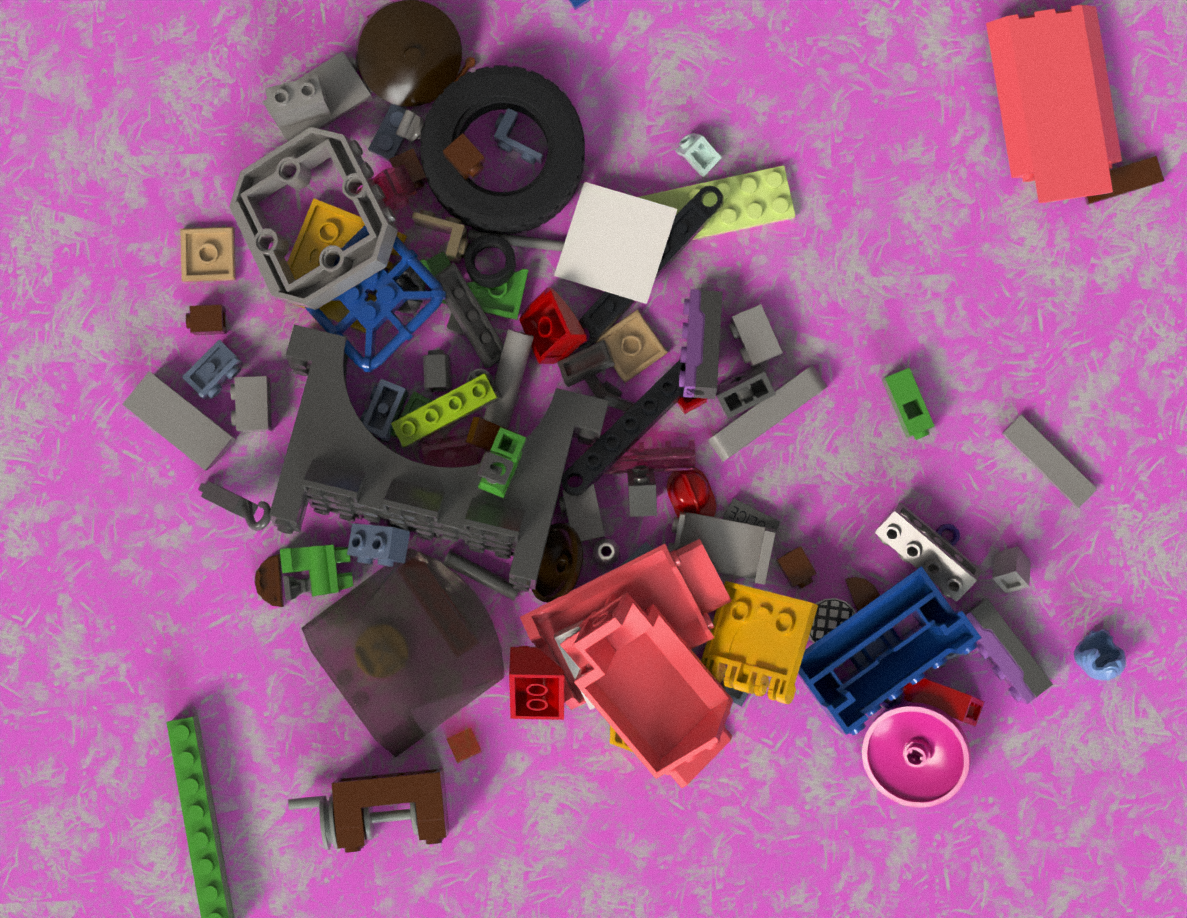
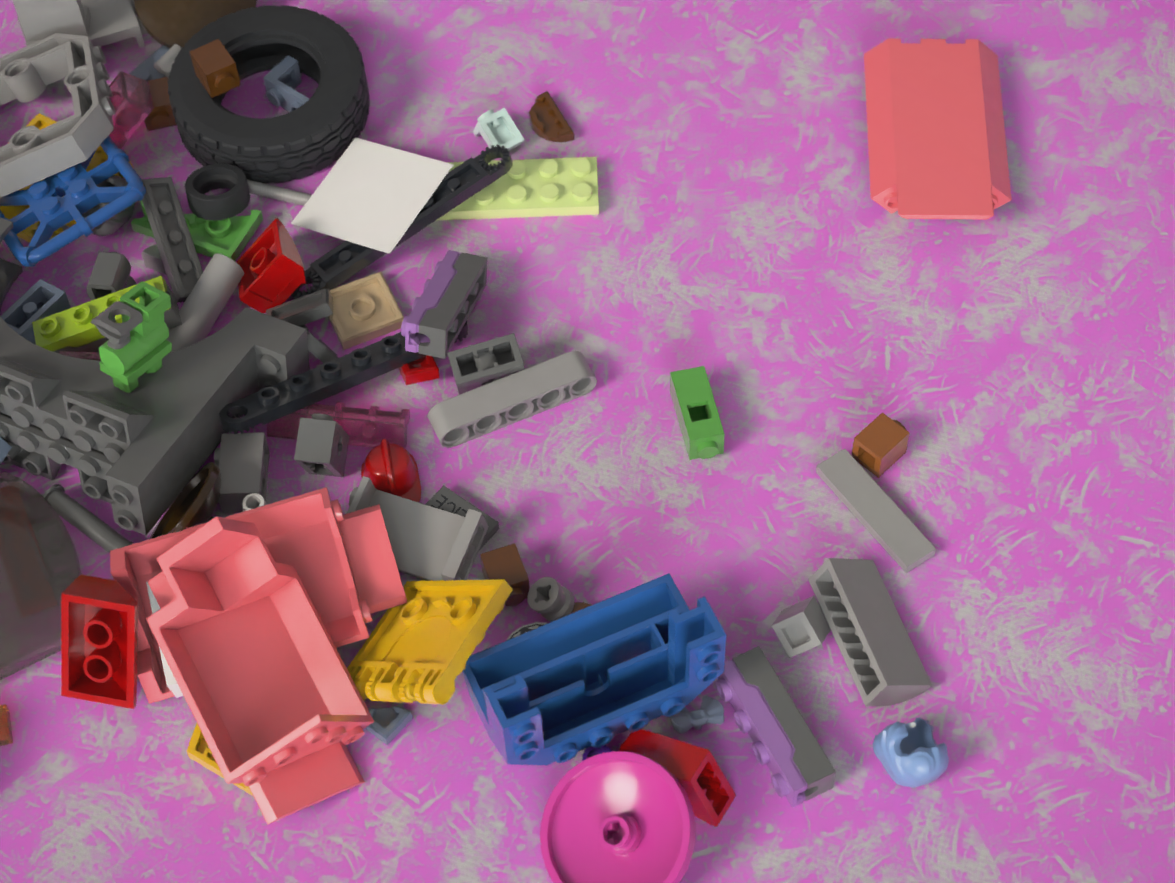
camera: 15 degrees right, 30 degrees down
(458, 234) = (171, 150): dark tan bracket -> none
(734, 129) = (548, 120): none -> reddish brown tile
(755, 336) = (518, 313): light grey brick -> none
(839, 581) = (550, 599): none -> light grey wheel
(926, 548) = (660, 551): light grey brick -> none
(956, 535) = (723, 565): dark purple axle -> none
(1048, 407) = (880, 444): none -> dark orange brick
(1059, 566) = (869, 632): none -> light grey brick
(1131, 178) = (1012, 227): reddish brown tile -> none

